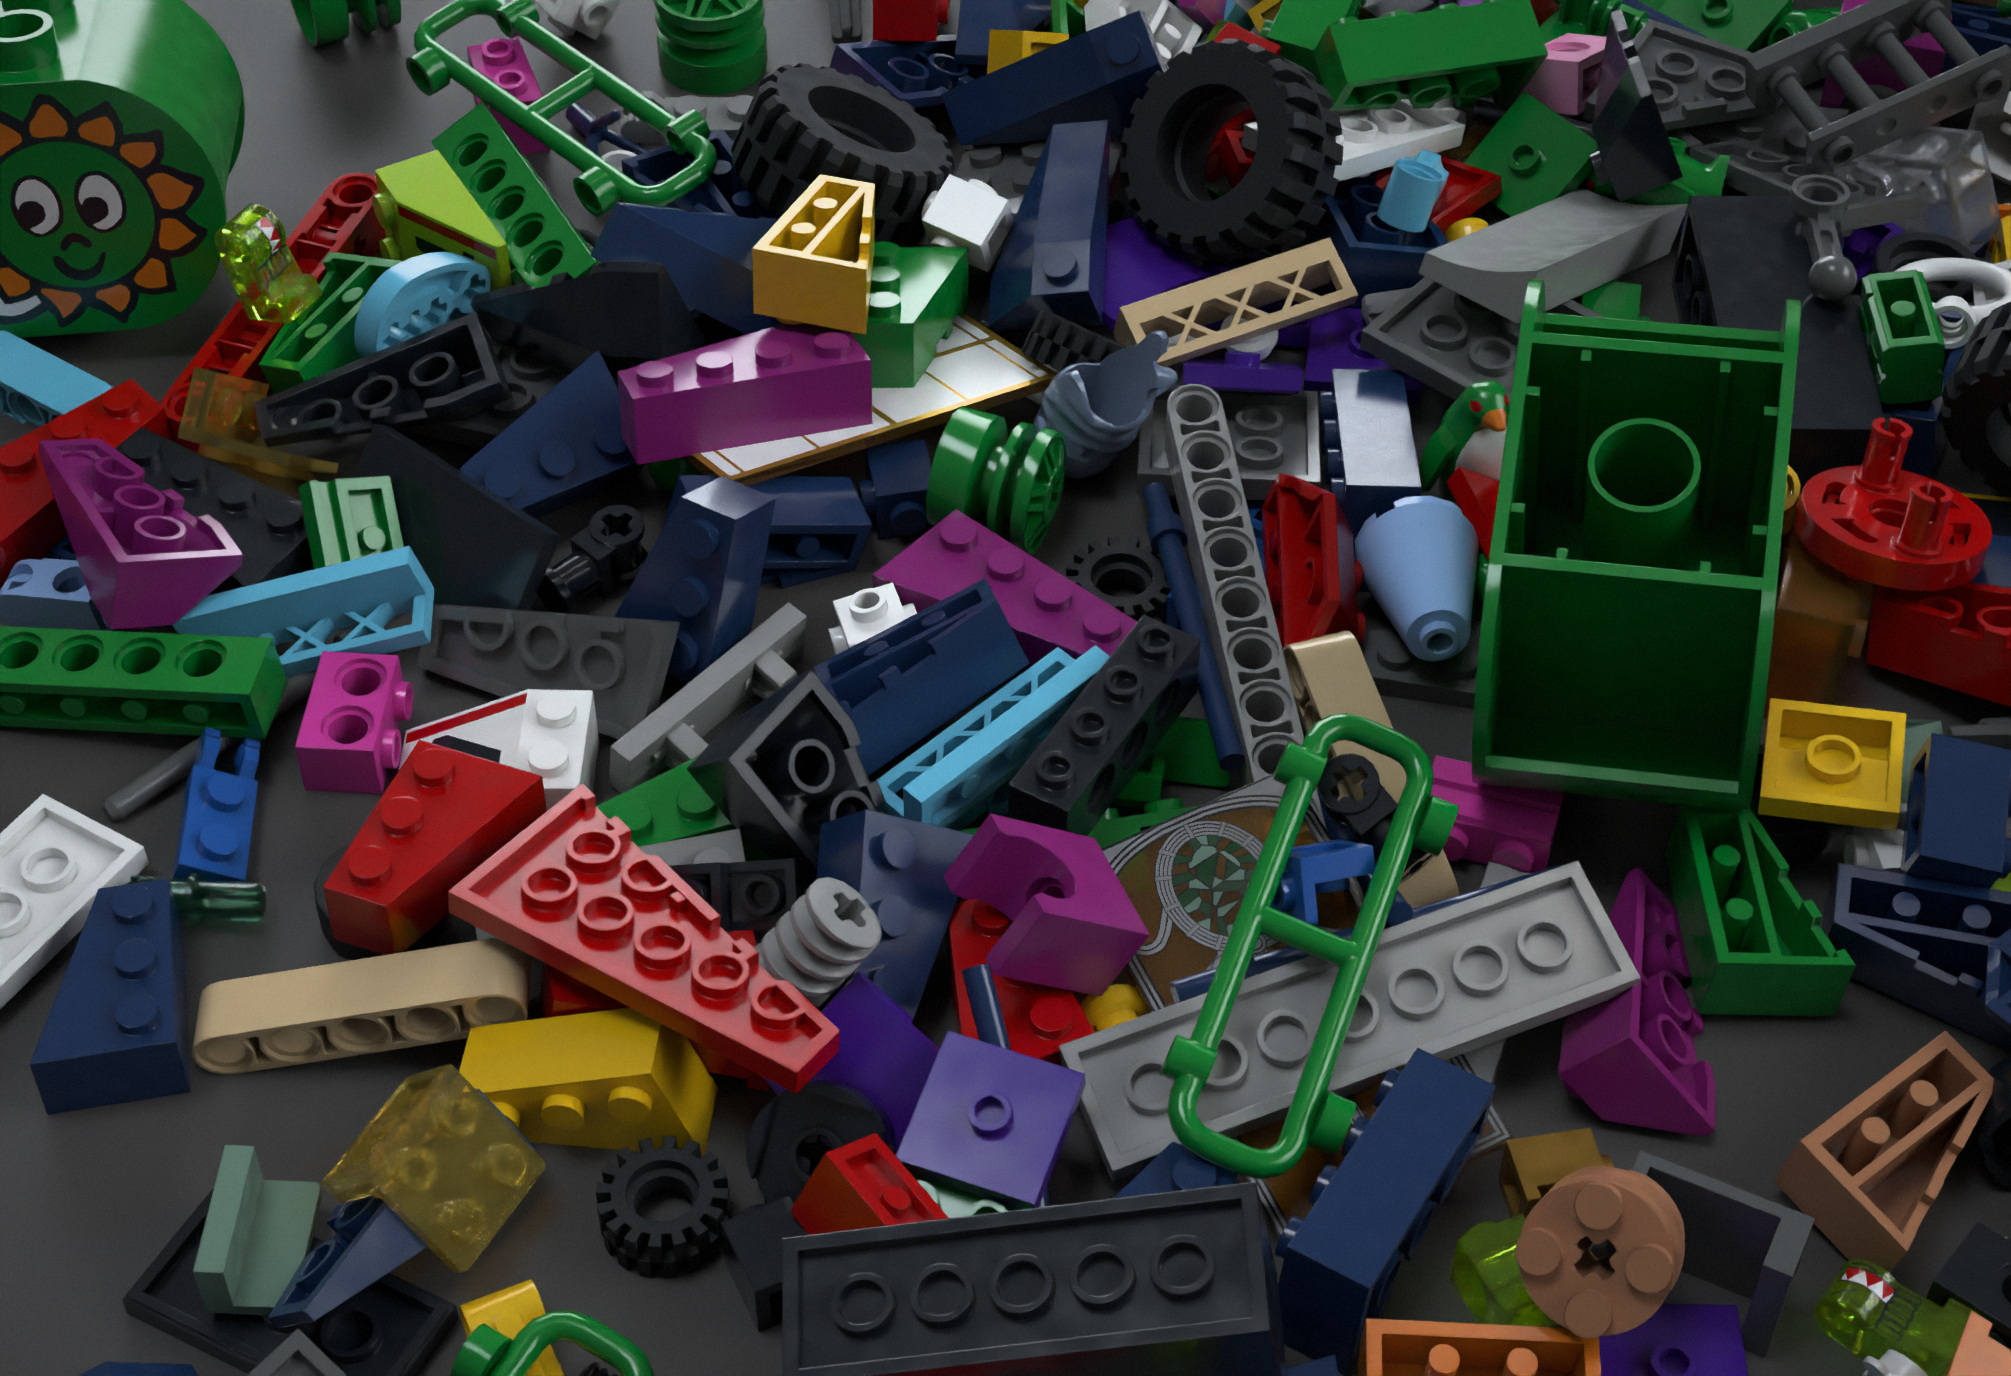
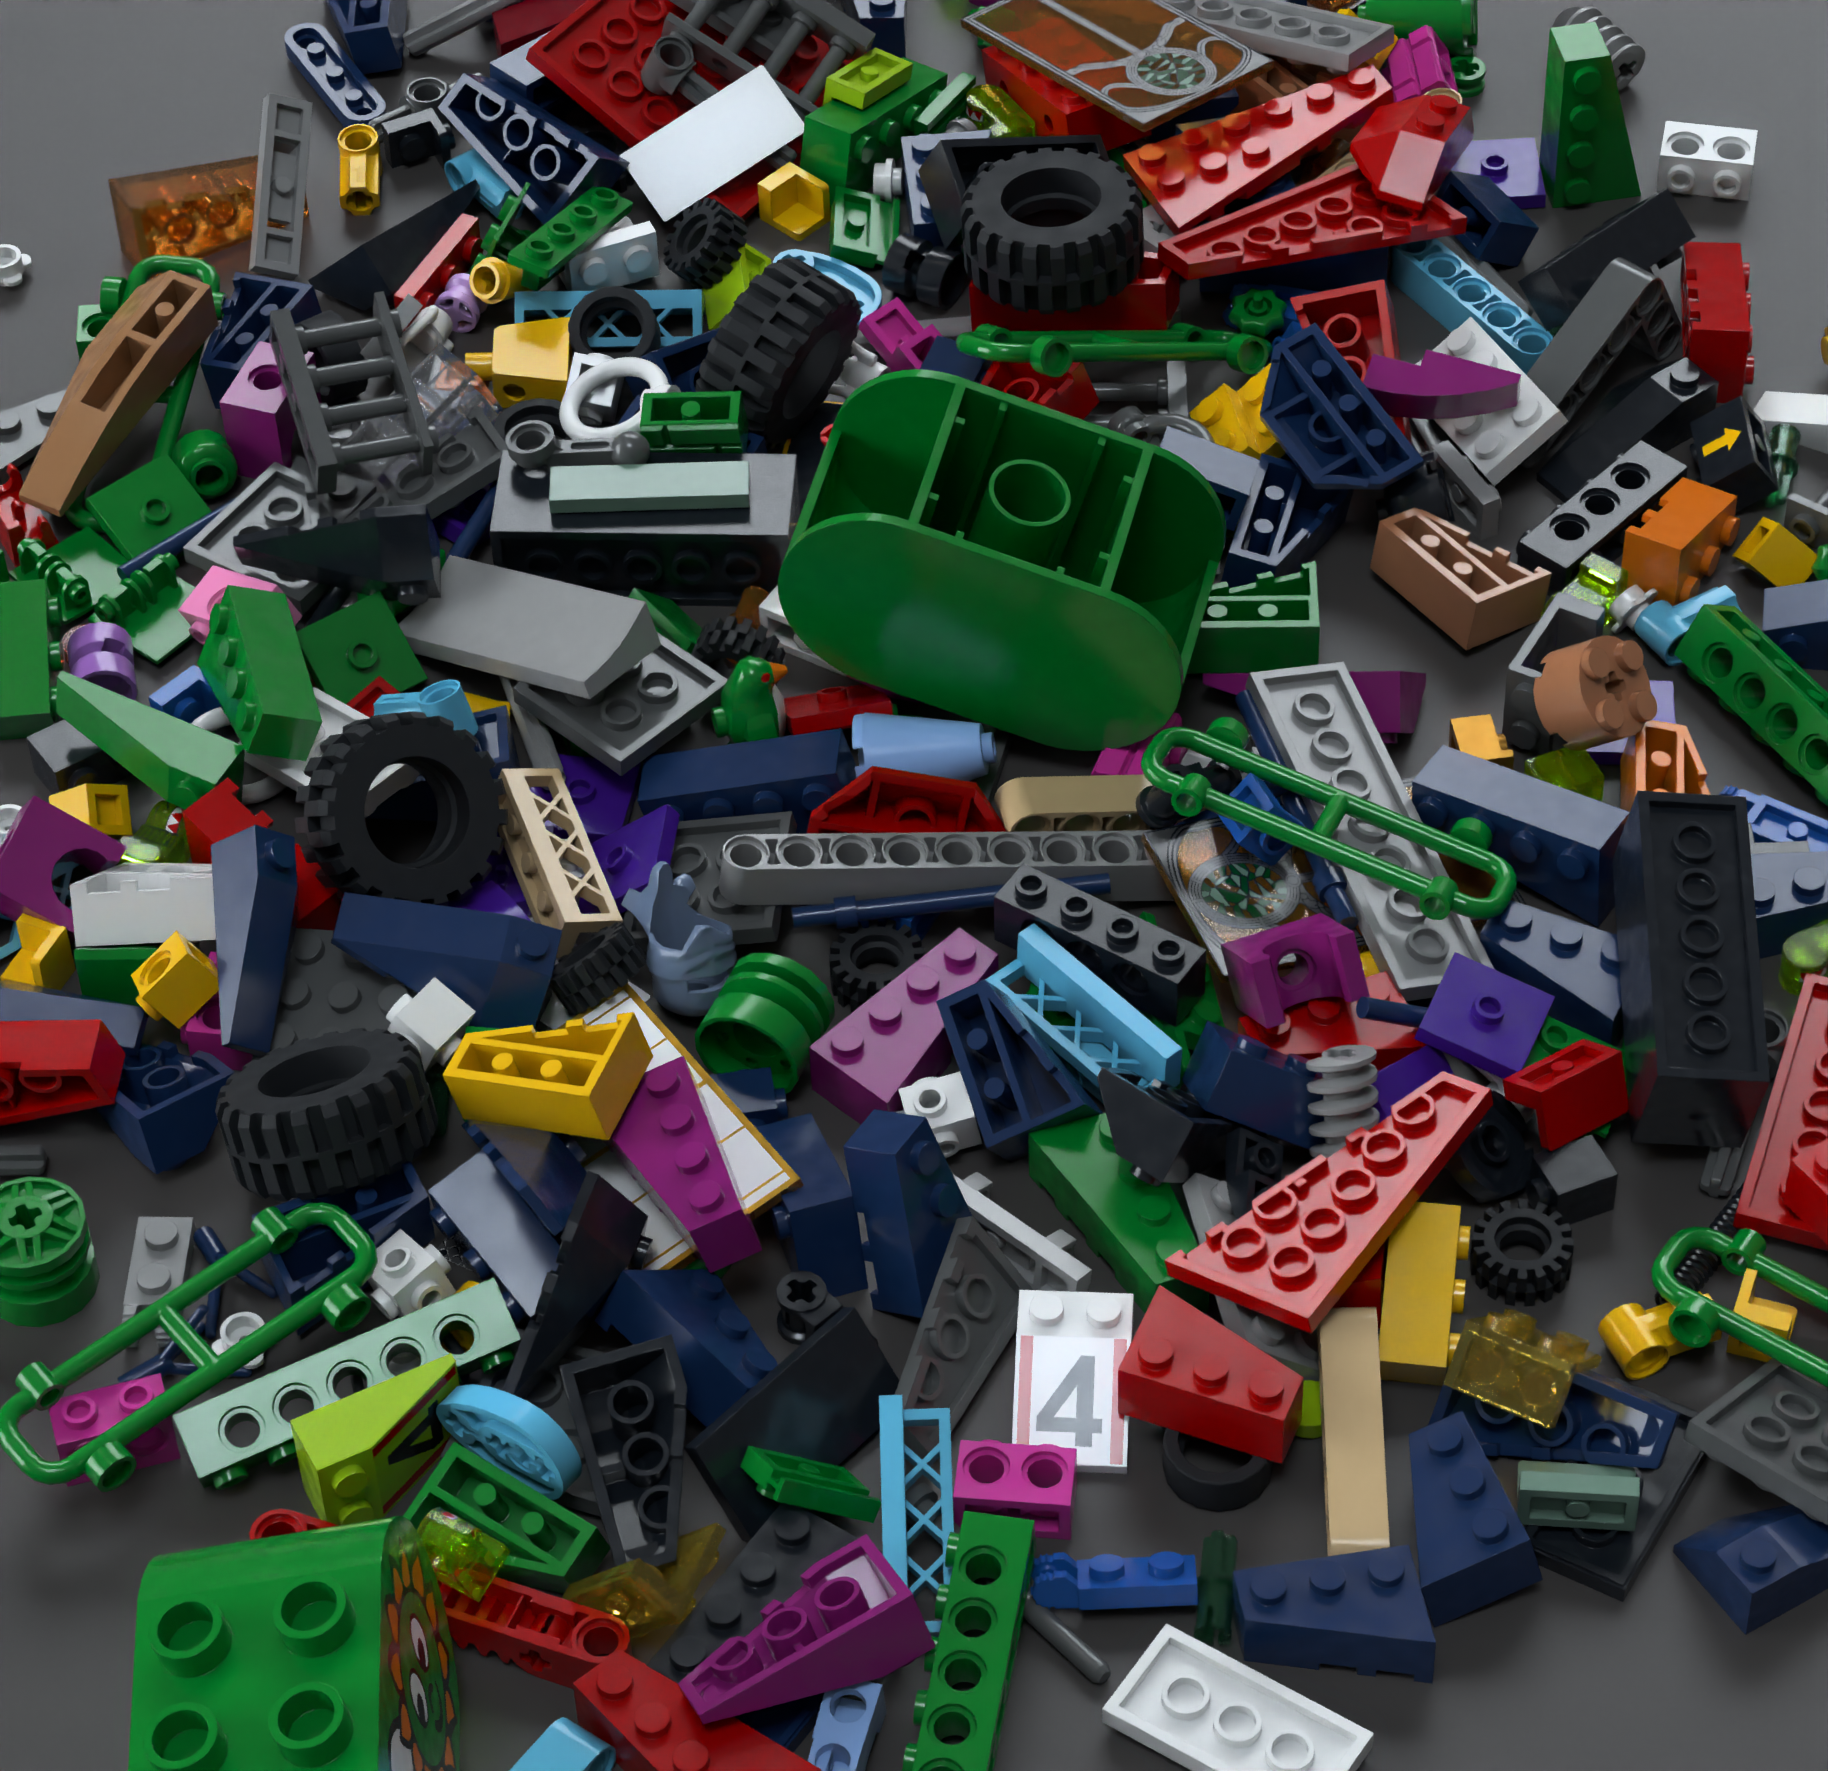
camera: 85 degrees left, 0 degrees up
(190, 1104) = (1465, 1524): none -> dark blue wedge
(1771, 274) = (649, 487): none -> tile

